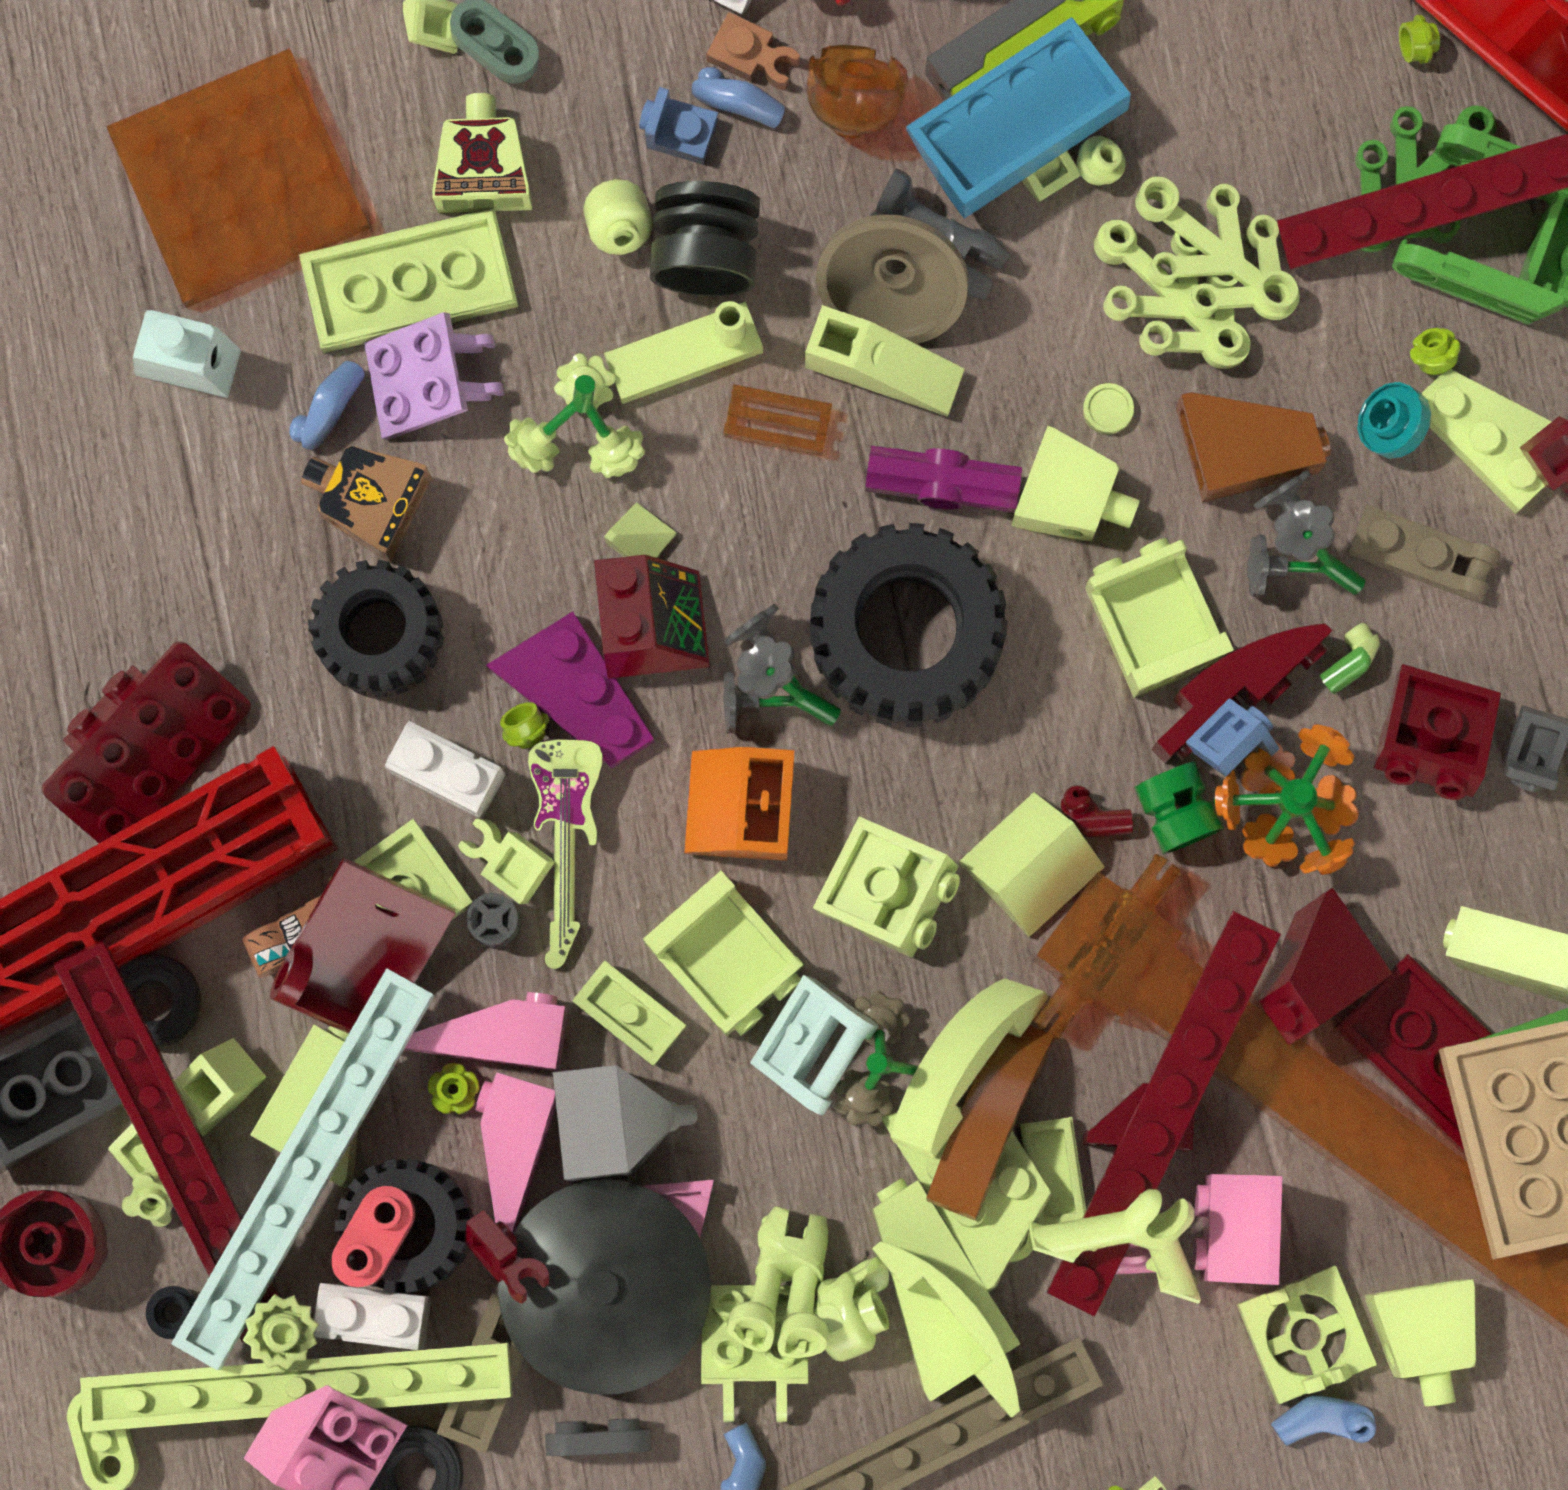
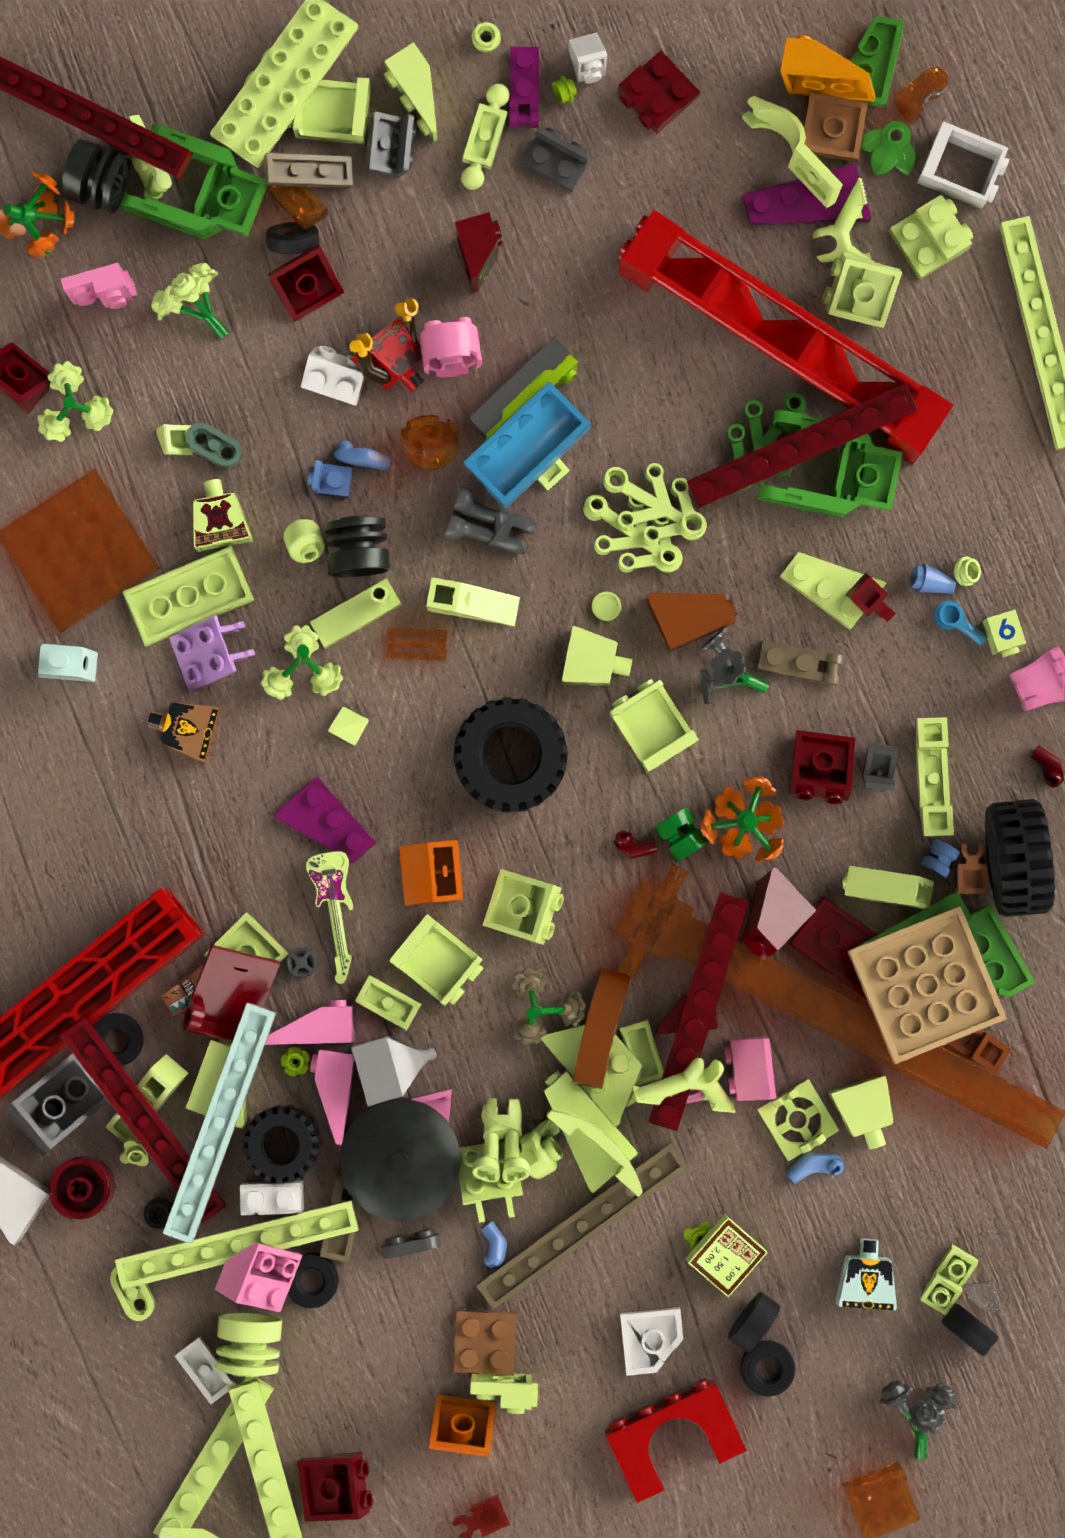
camera: 15 degrees left, 5 degrees up
(143, 741) = (83, 893): dark red bracket -> none
(280, 1332) = (223, 1216): yellowish green piece -> none
(327, 406) = (154, 678): medium blue arm -> none
(350, 595) = (180, 805): black tyre -> none
(373, 1237) = (265, 1155): coral plate -> none
(445, 770) = (259, 881): white brick -> none
(497, 1251) = (336, 1150): dark red plate -> none
(512, 862) = (306, 927): yellowish green plate -> none
(524, 725) = (300, 847): lime plate -> none
(650, 616) = (362, 773): dark red slope -> none
(745, 48) = (361, 425): nougat plate -> none
(764, 672) = (434, 797): dark grey plant -> none
(801, 1036) = (487, 1001): light aqua plate -> none
(907, 298) = (470, 554): dark tan dish -> none
(943, 479) = (517, 664): magenta piece -> none
(955, 1059) = (577, 1000): yellowish green slope -> none
(1032, 863) = (603, 878): yellowish green slope -> none
(1100, 161) = (573, 463): yellowish green plate -> none
(1231, 736) = (704, 790): medium blue bracket -> none
(1251, 672) = (712, 748): dark red slope -> none
(1354, 664) = (770, 733): bright green arm -> none
(1394, 420) = (771, 588): teal plate -> none
(1418, 40) = (753, 359): lime plate -> none
(1435, 351) = (791, 548): lime plate -> none

